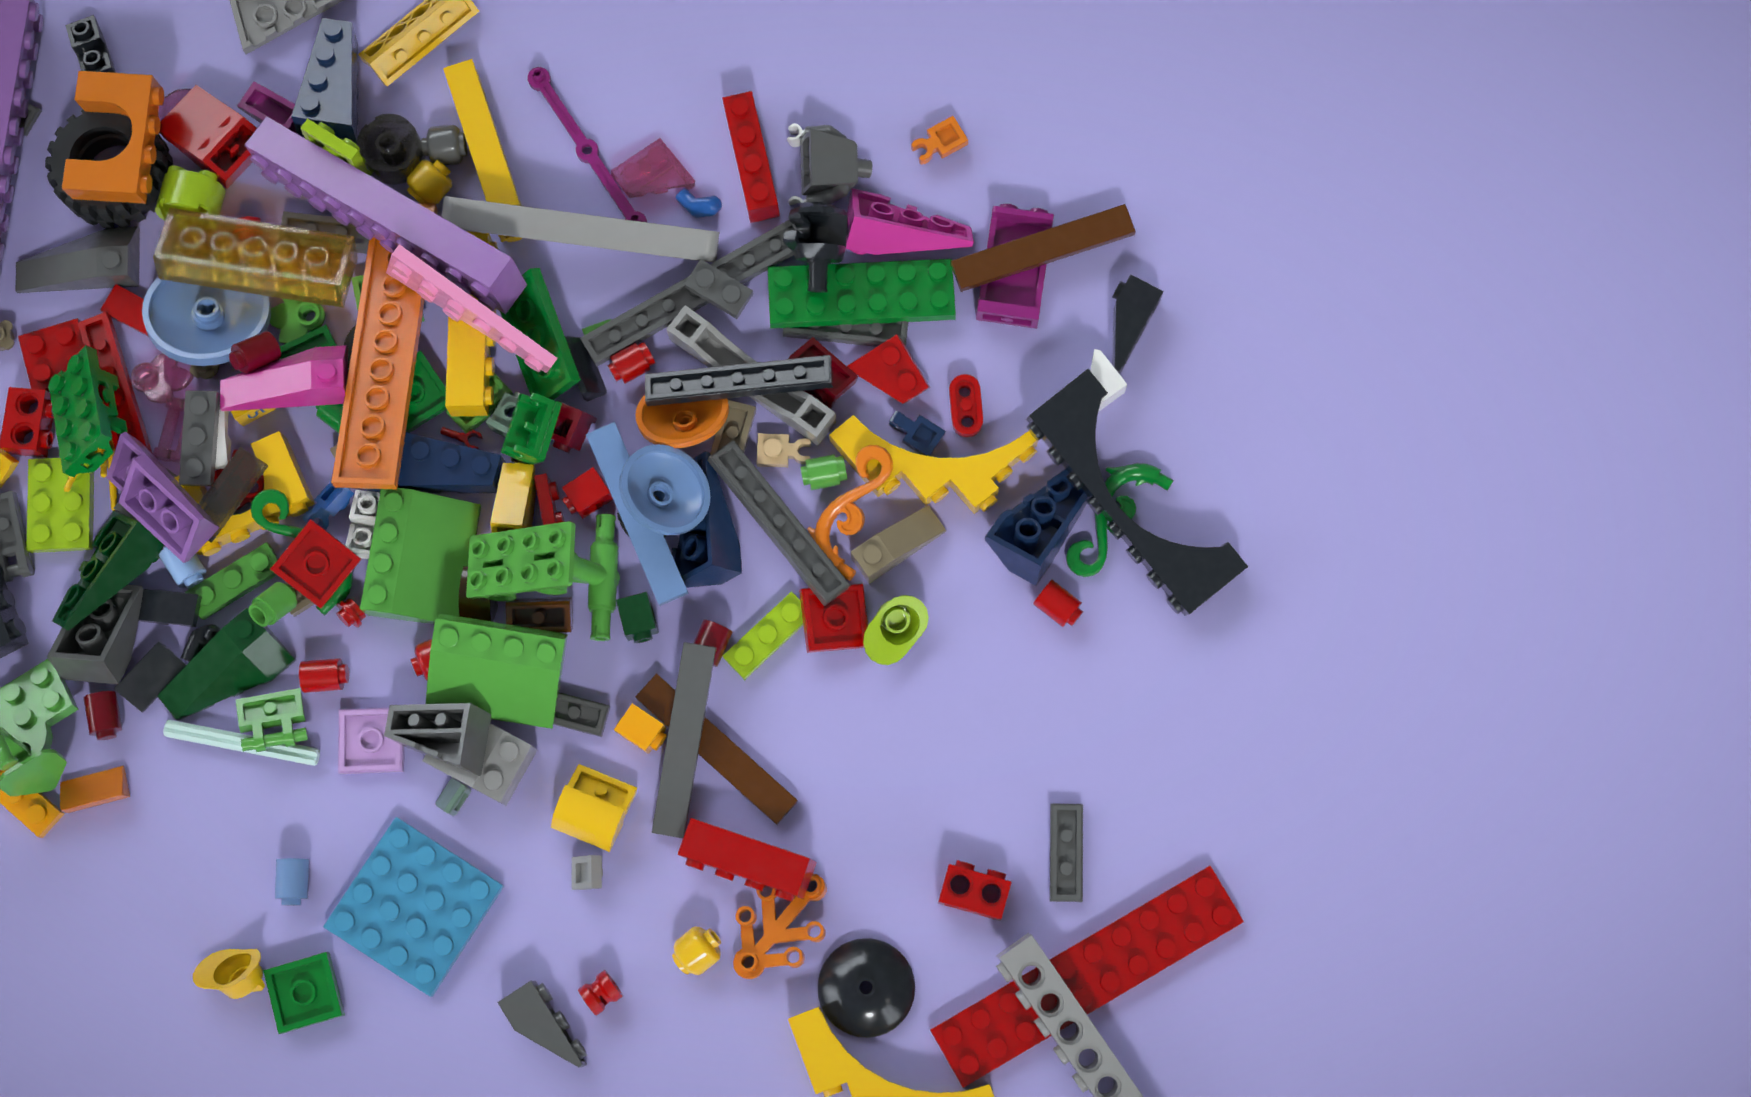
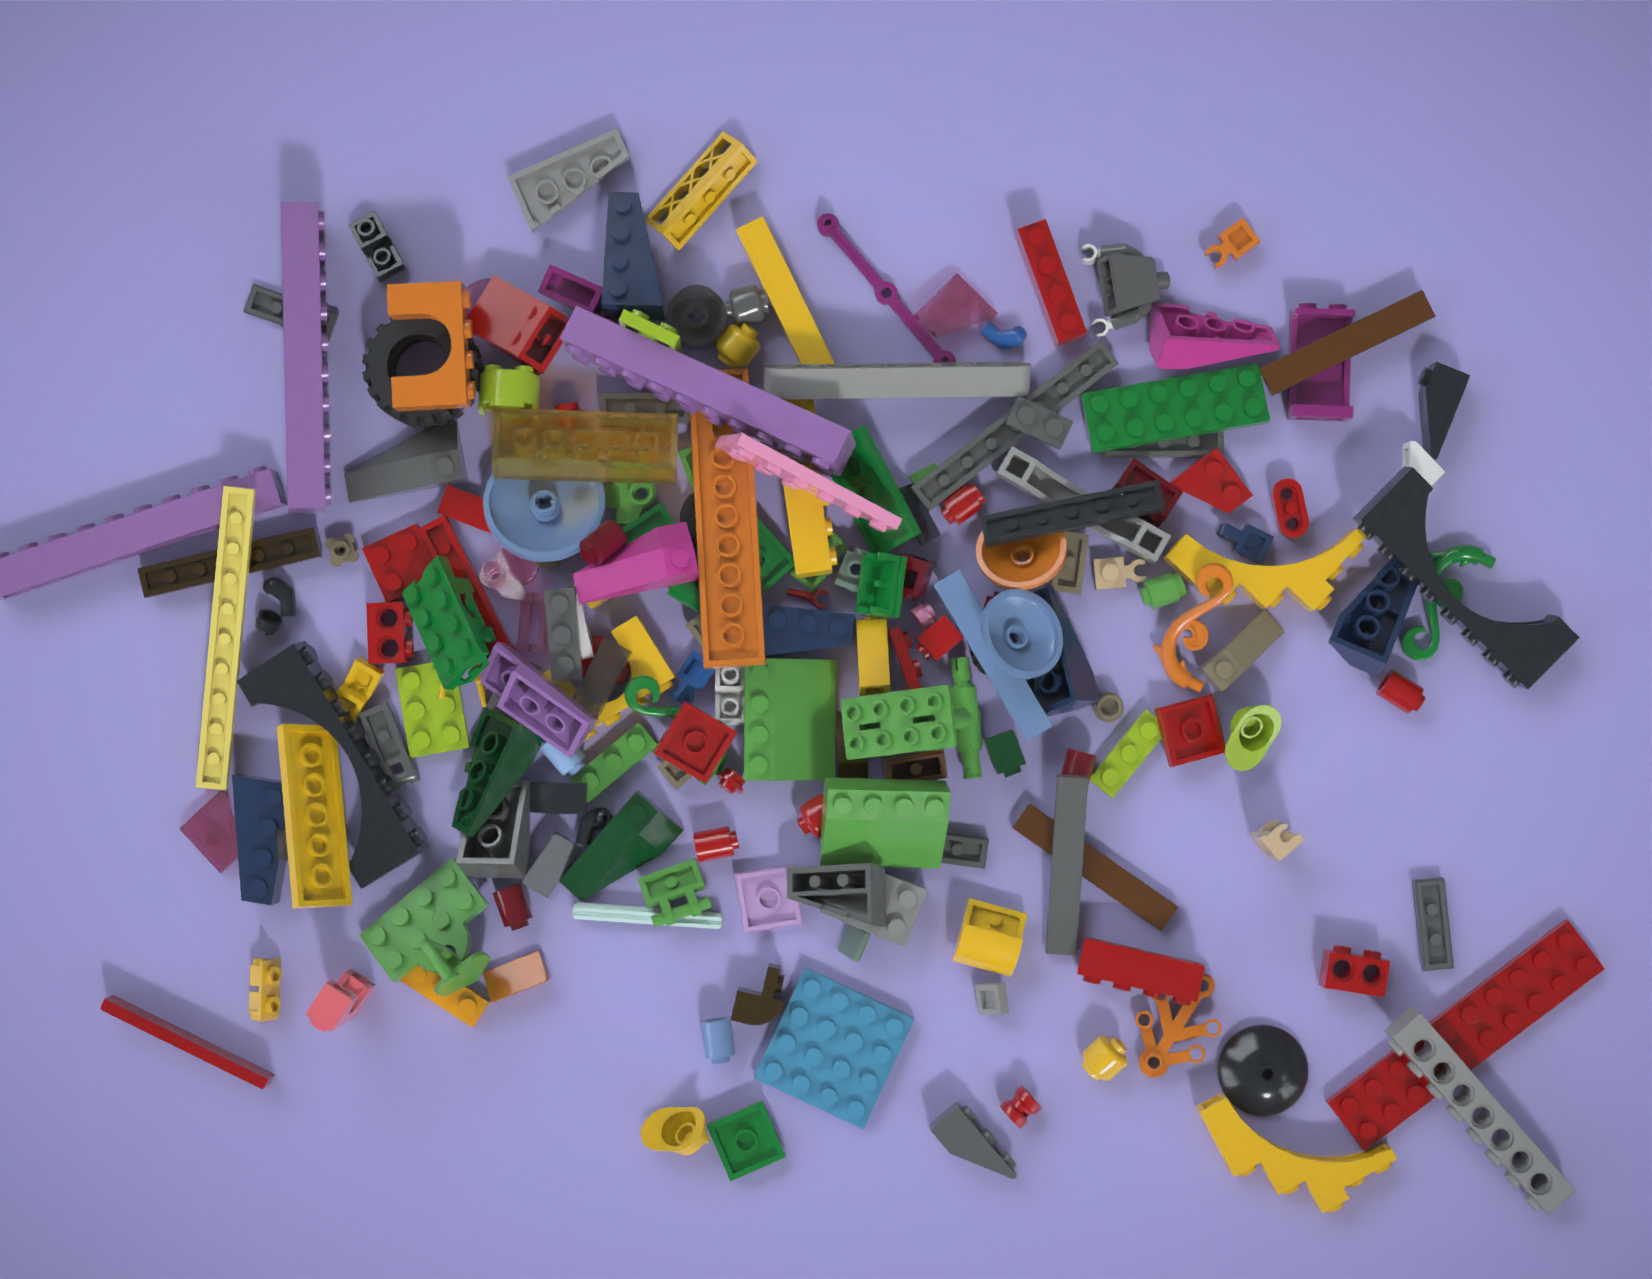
camera: 10 degrees left, 10 degrees up
(273, 604) = (661, 786): bright green brick -> none
(343, 851) = (760, 1007): none -> dark brown brick
(575, 467) = (923, 615): none -> bright pink plate
(641, 729) = (1024, 859): light orange brick -> none
(753, 585) = (1109, 707): none -> dark tan plate
(778, 523) = (1128, 647): dark grey tile -> none
(818, 239) = (1132, 365): black piece -> none
(903, 740) = (1275, 842): none -> tan hinge

